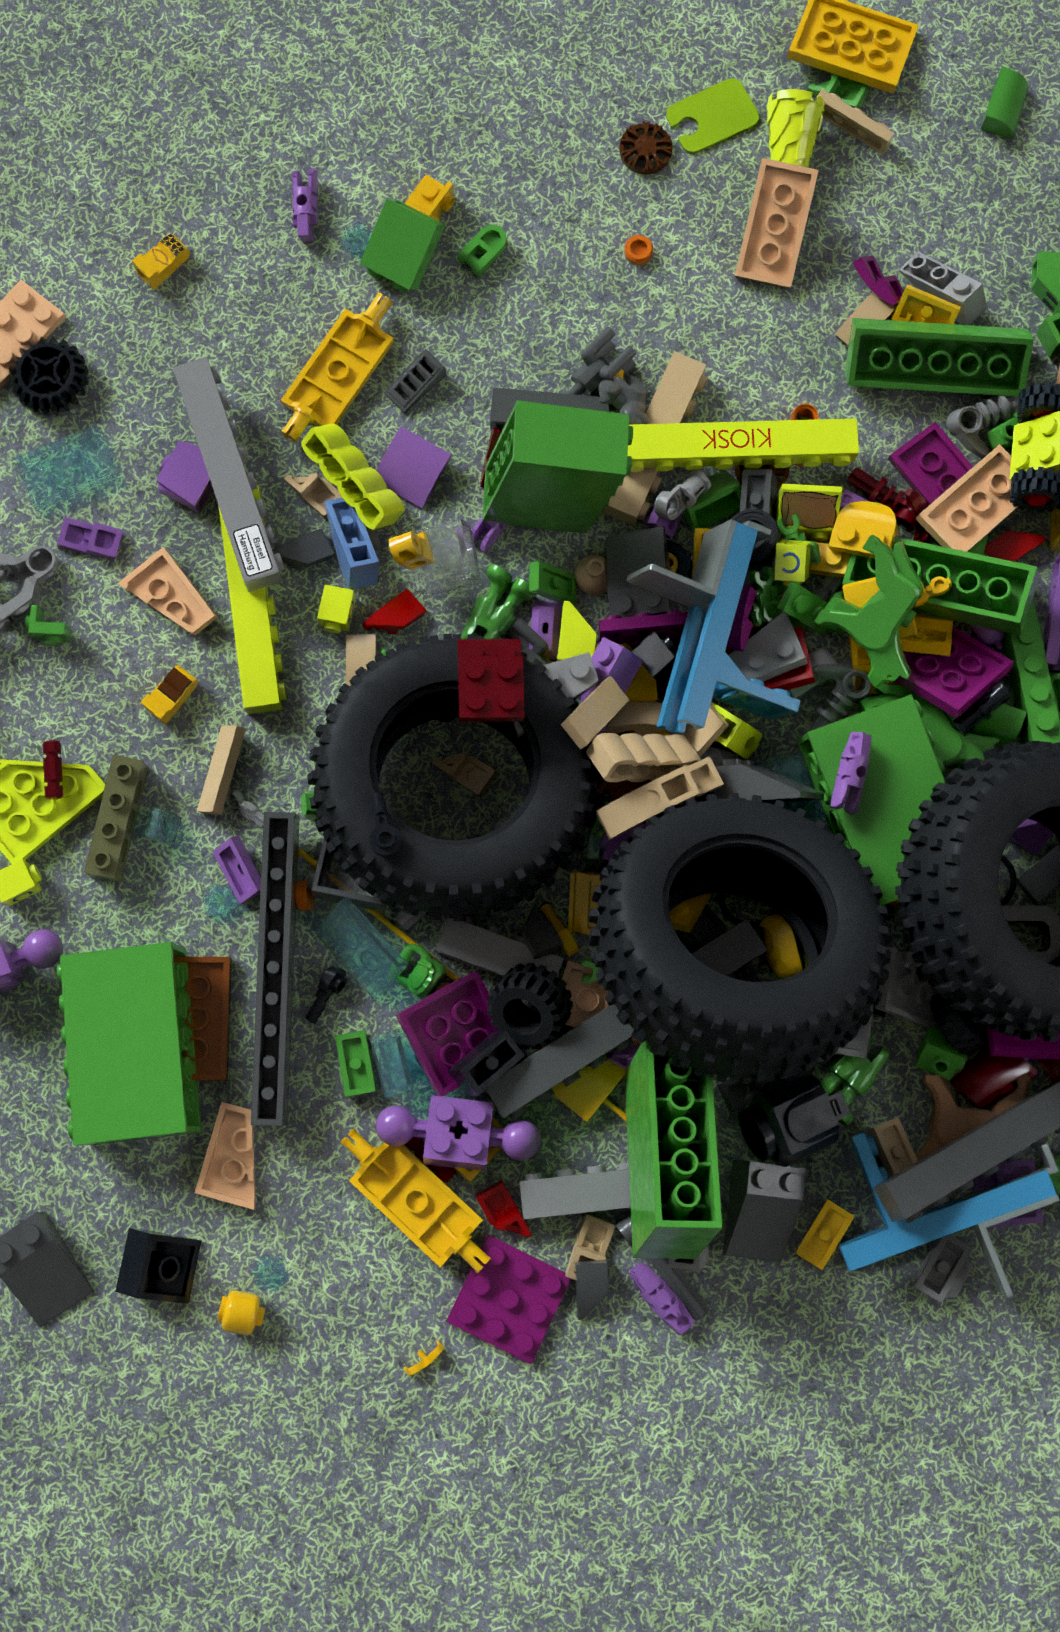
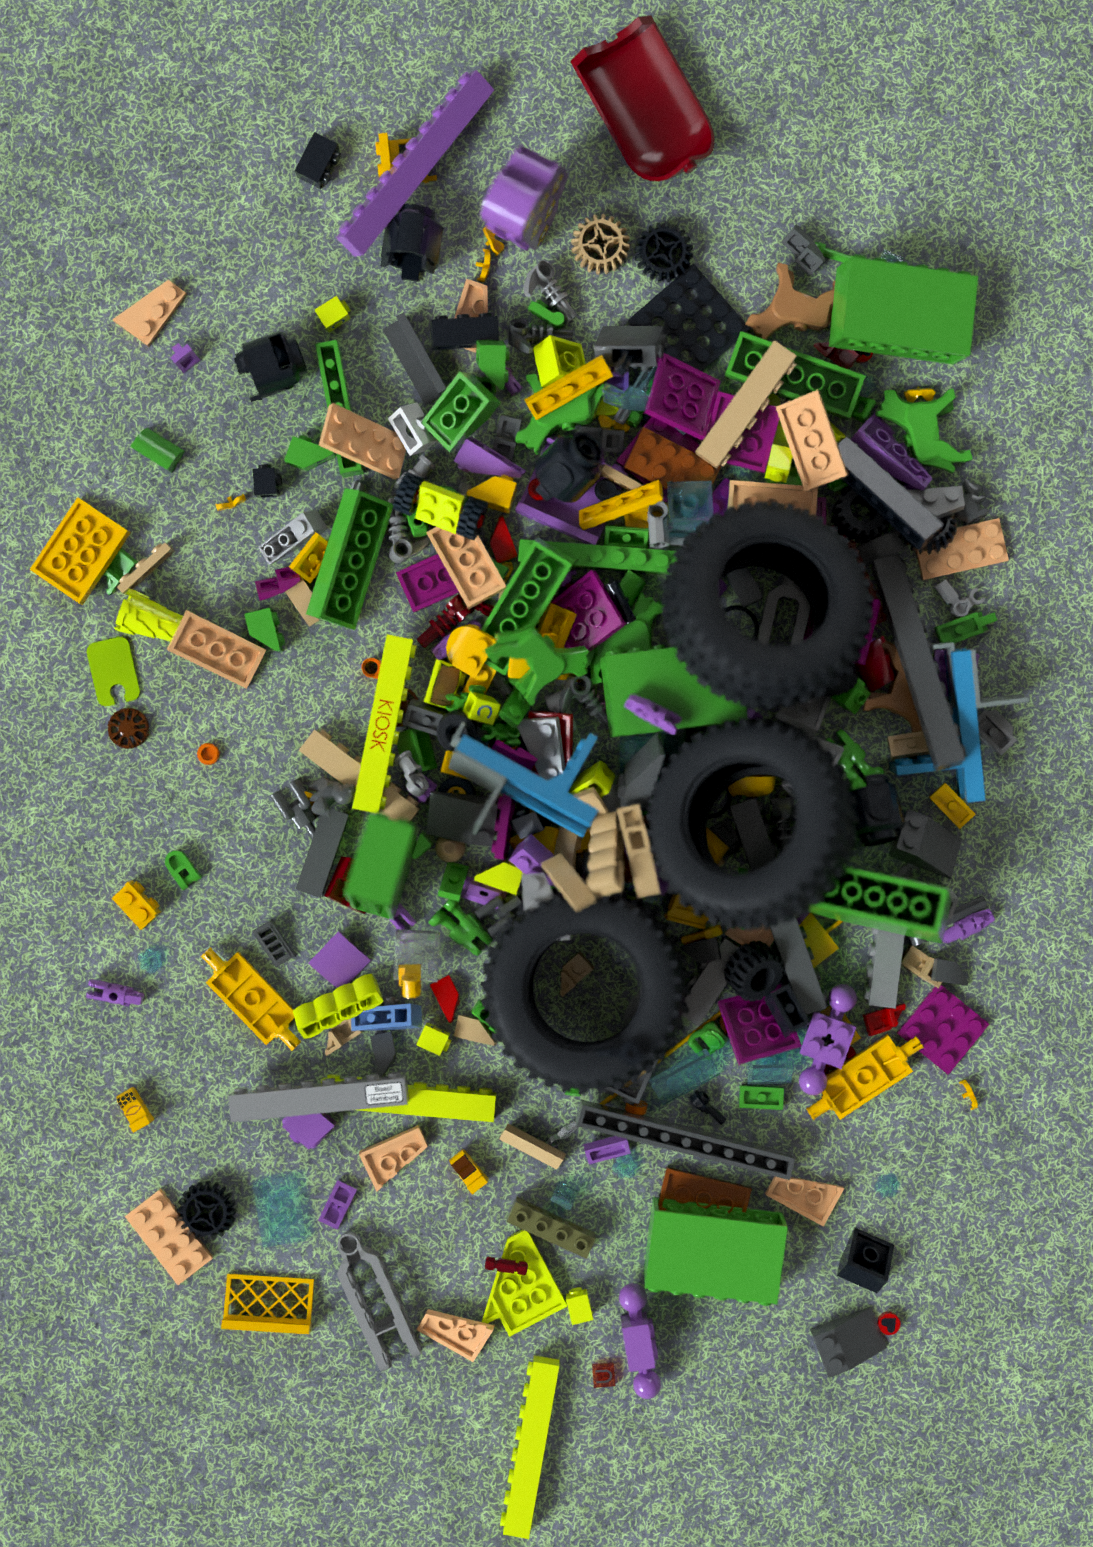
camera: 75 degrees left, 10 degrees up
(50, 632) = (403, 1247): bright green bracket -> none
(75, 1322) = (889, 1323): none -> red tile
(240, 1312) = (910, 1211): yellow head -> none
(401, 245) = (167, 930): bright green brick -> none
(490, 680) = (534, 954): dark red bracket -> none
(589, 531) = (423, 844): none -> bright green slope
(819, 278) = (263, 627): none -> bright green slope
(937, 587) = (528, 612): yellow piece -> none
(964, 209) = (232, 503): none -> yellow piece
(1004, 239) = (266, 481): none -> black brick

